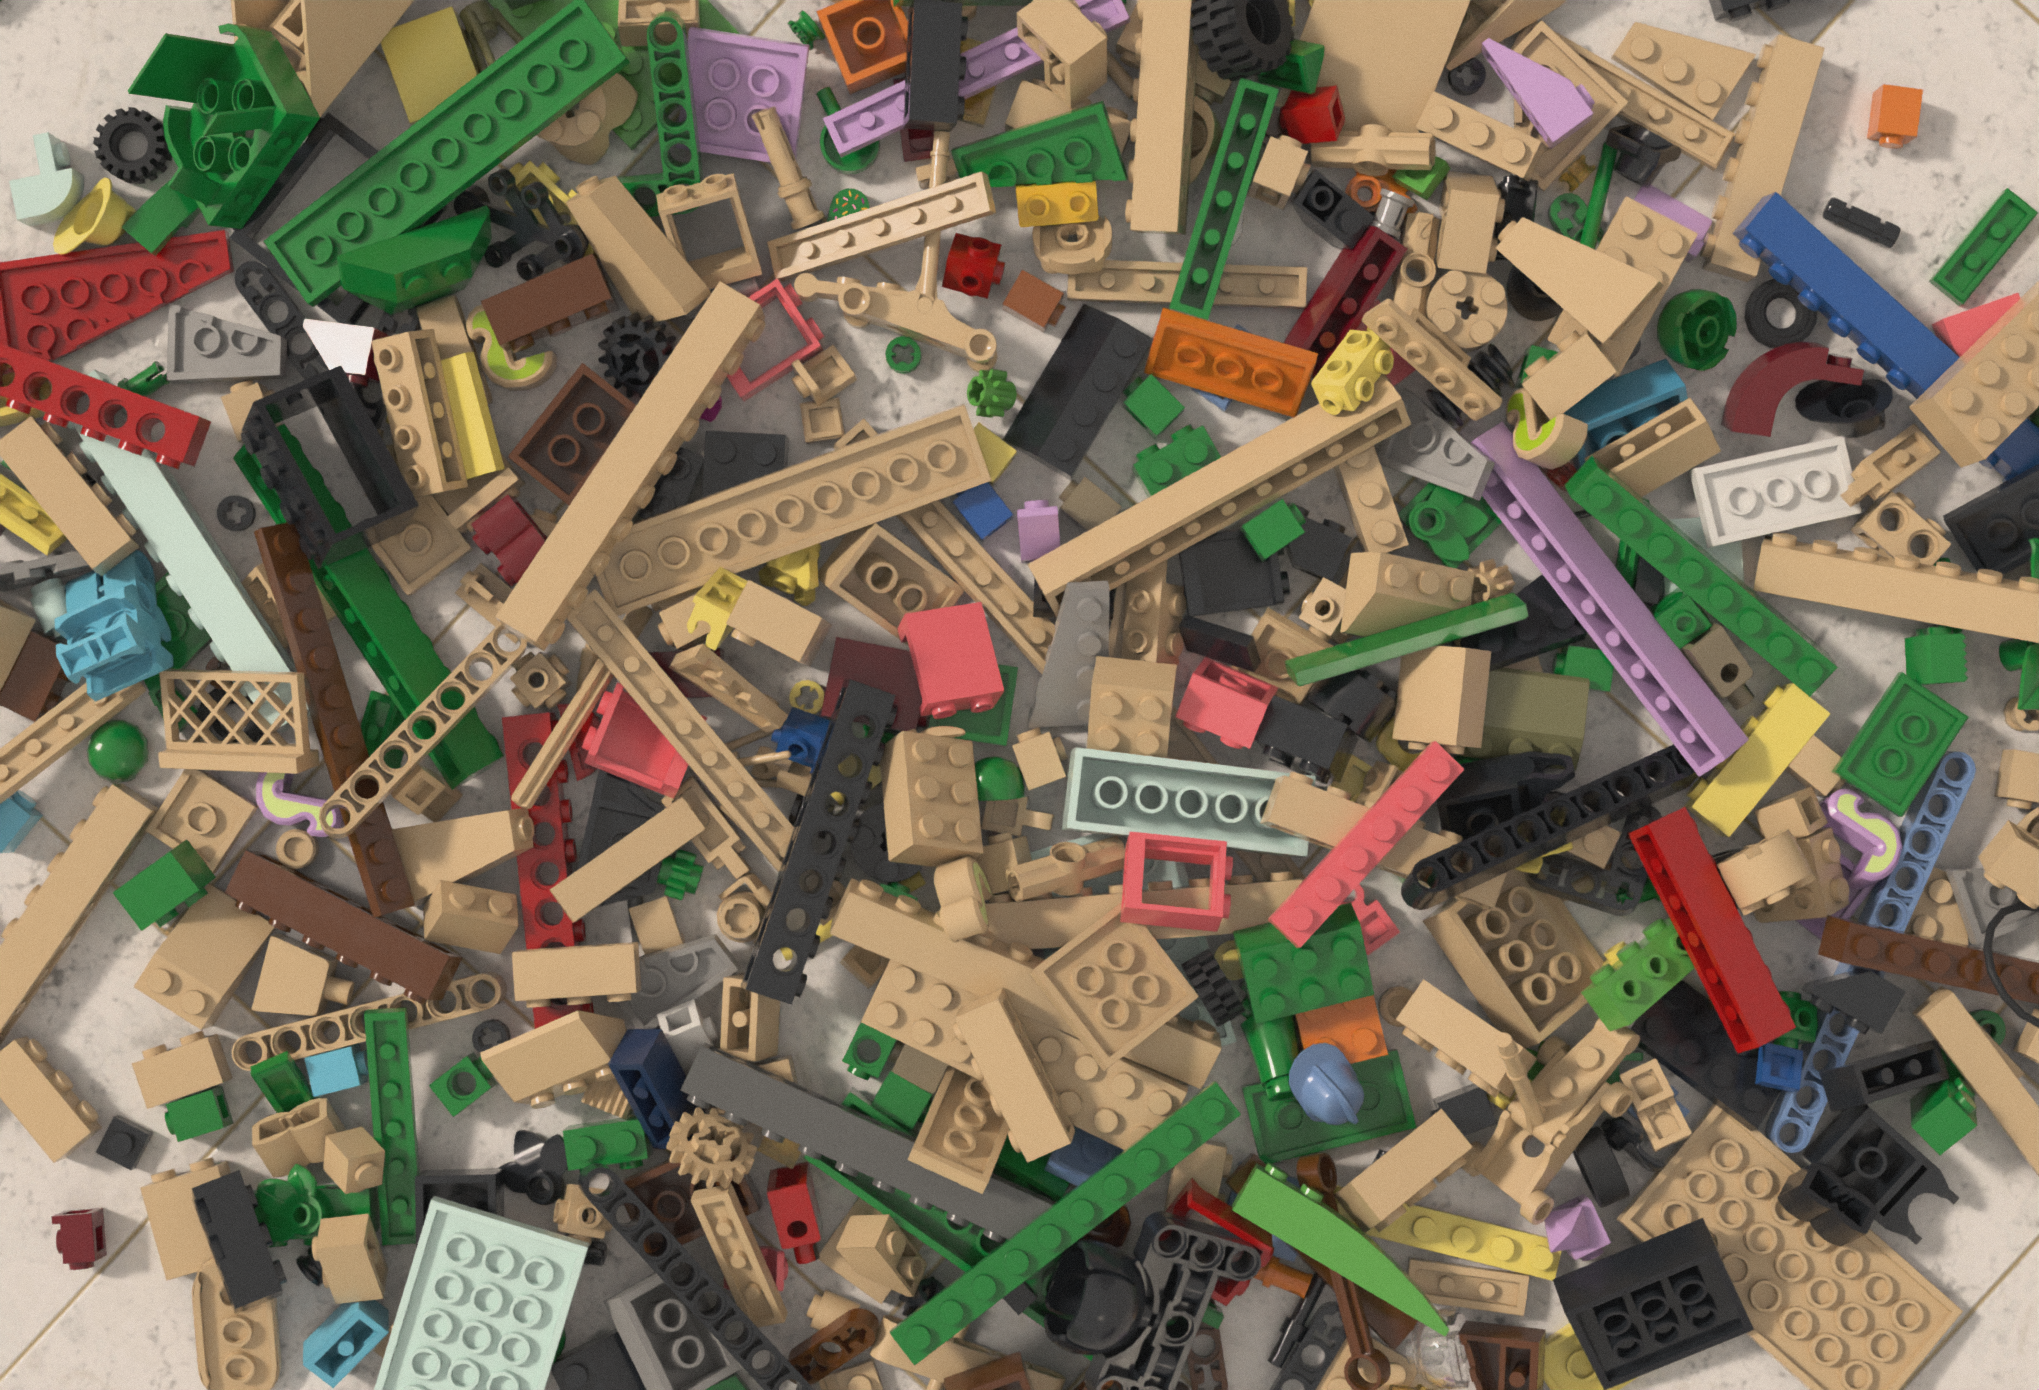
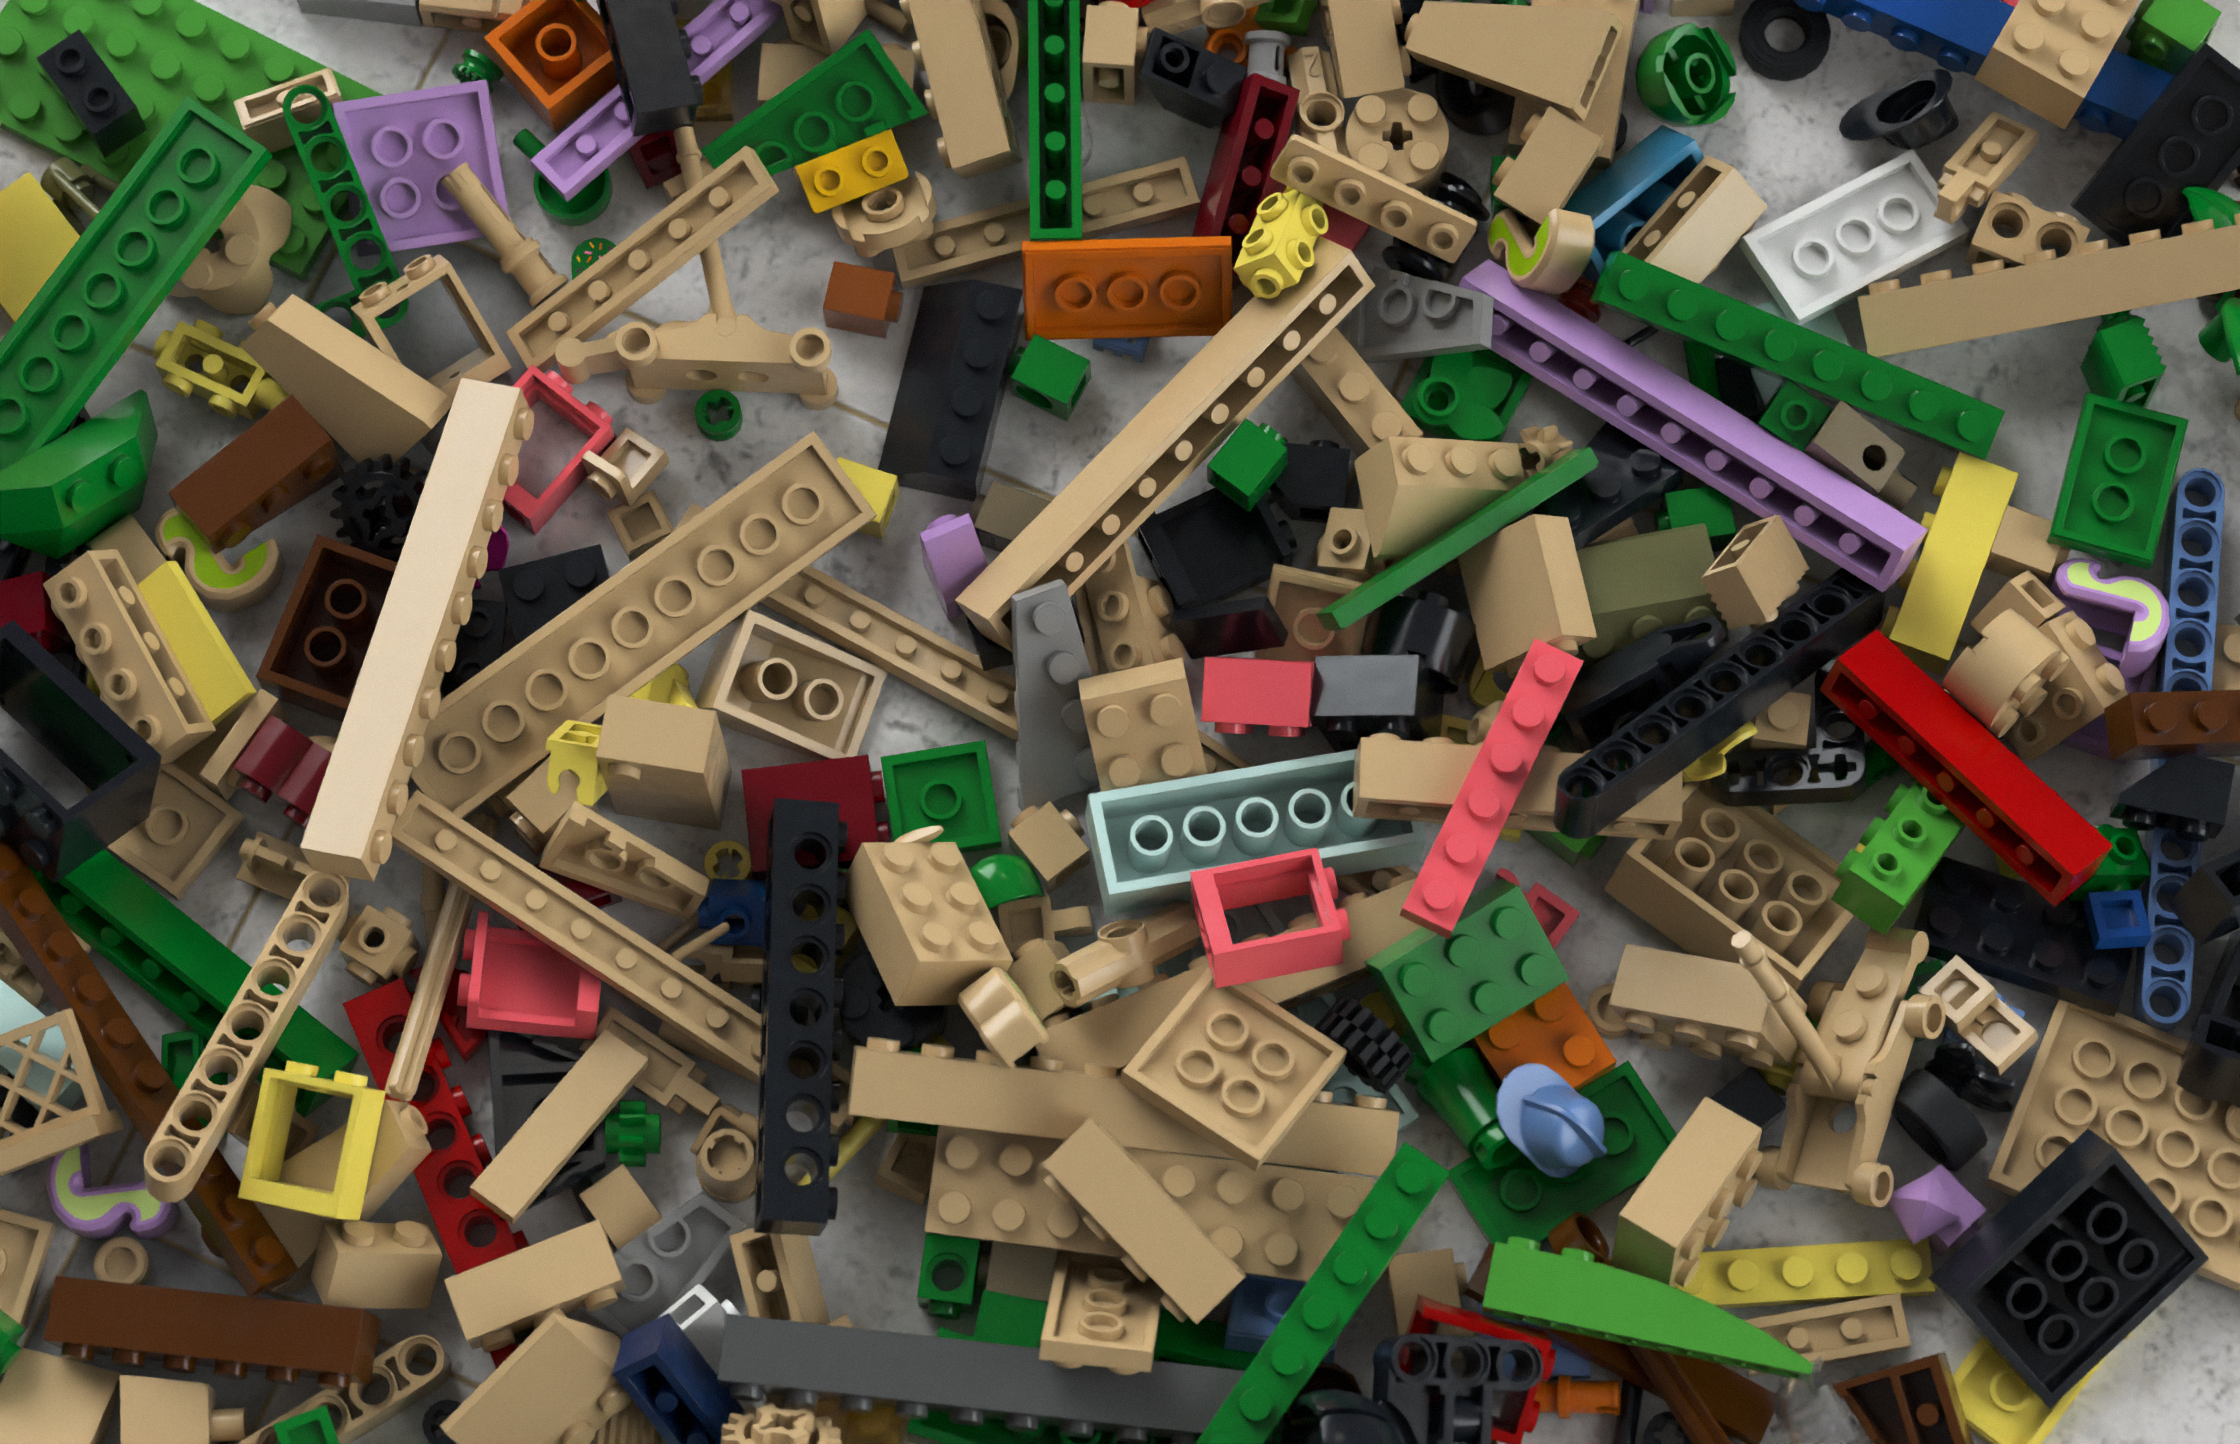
camera: 20 degrees left, 15 degrees down
(425, 857) = (270, 1136): none -> light yellow window
(564, 240) = (197, 395): black plant -> none
(952, 659) = (898, 749): coral panel -> none
(973, 266) = (772, 279): red brick -> none
(982, 510) = (877, 564): blue brick -> none
(991, 393) = (844, 422): bright green gear -> none
(1182, 457) = (1106, 413): green brick -> none
(1612, 733) = (1755, 574): none -> tan brick
(1768, 378) = (1789, 125): dark red arch -> none

